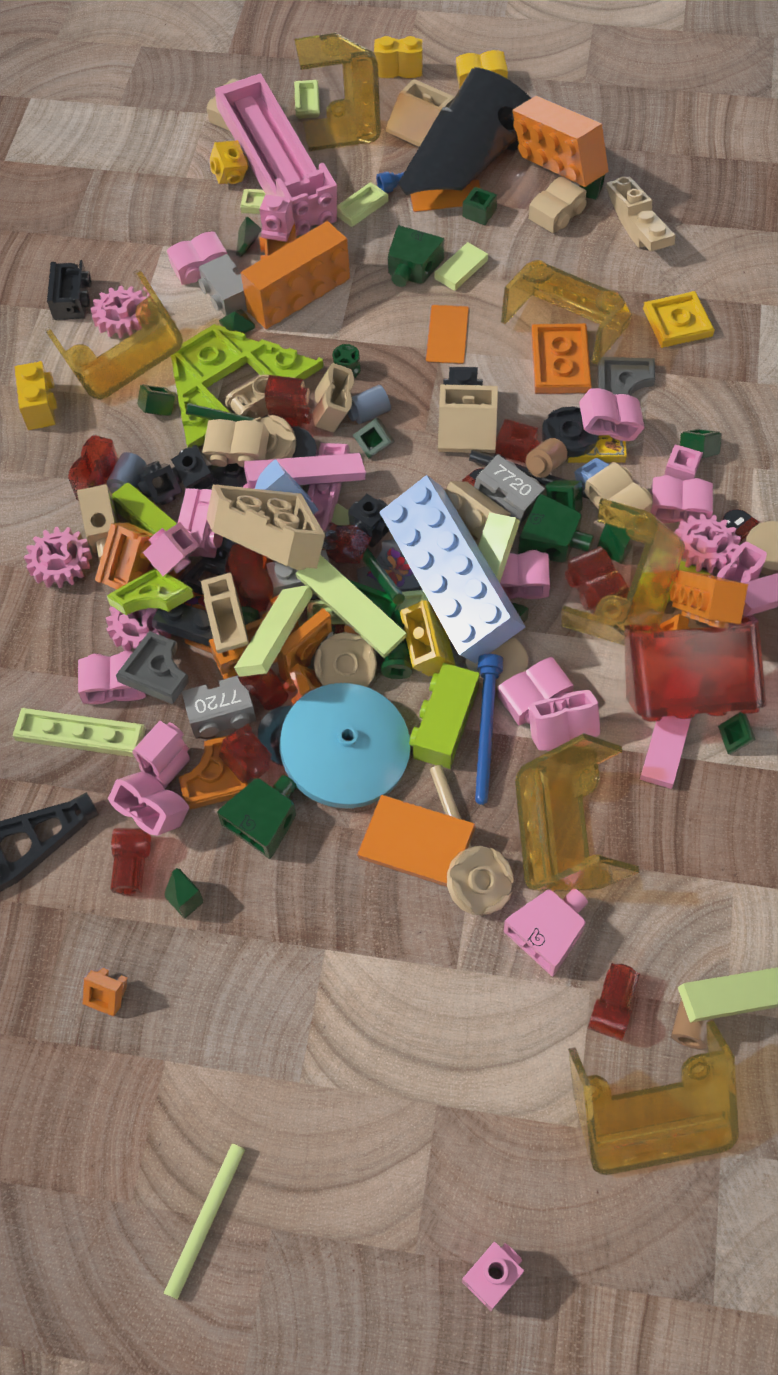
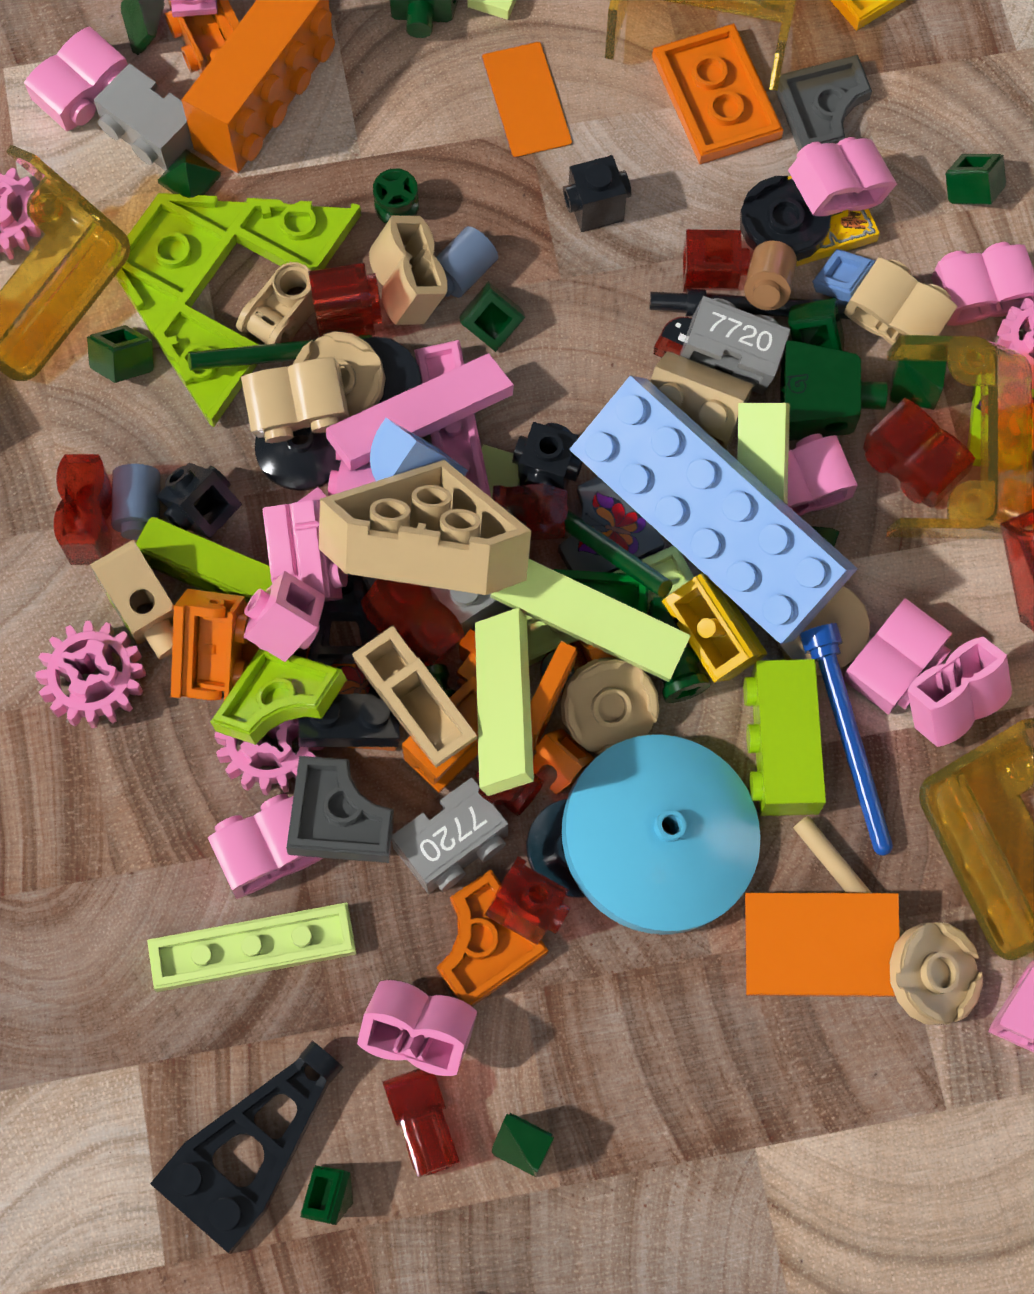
camera: 25 degrees left, 10 degrees up
(56, 883) = (327, 1195): none -> dark green slope
(162, 752) = (407, 943): bright pink brick -> none
(194, 469) = (255, 471): black brick -> none
(261, 814) = (586, 982): dark green torso -> none
(467, 418) = (626, 244): tan slope -> none
(683, 463) = (966, 224): bright pink slope -> none

